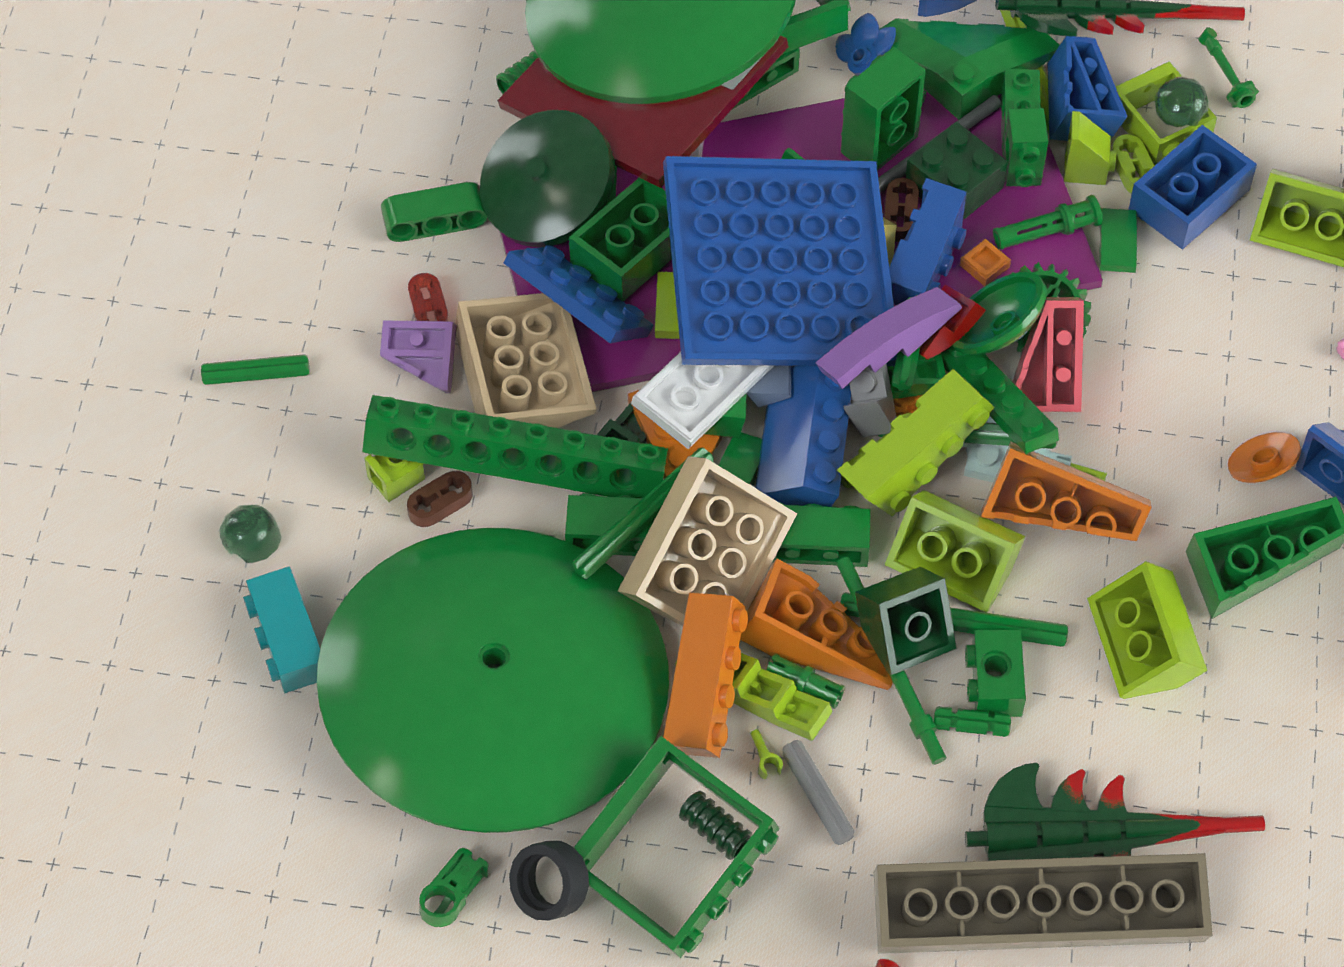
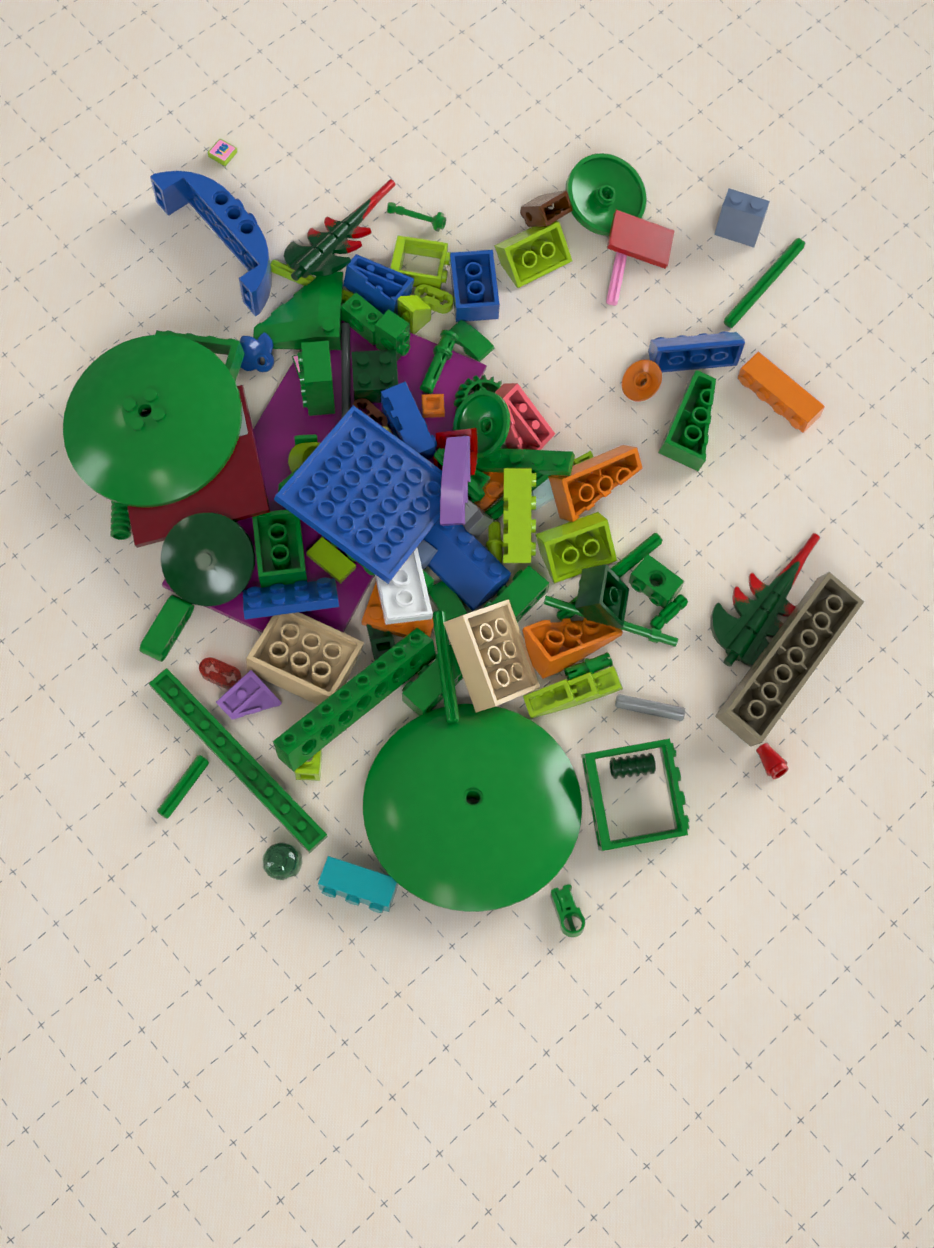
camera: 55 degrees left, 10 degrees up
(334, 402) = (238, 760): none -> green plate
(440, 500) = (347, 755): copper beam -> none
(524, 886) = (611, 878): black tyre -> none
(705, 674) = (558, 709): orange brick -> none
(764, 755) = (614, 716): lime hand -> none
(1146, 632) = (687, 503): lime slope -> none
(1181, 102) = (429, 250): clear green hair -> none

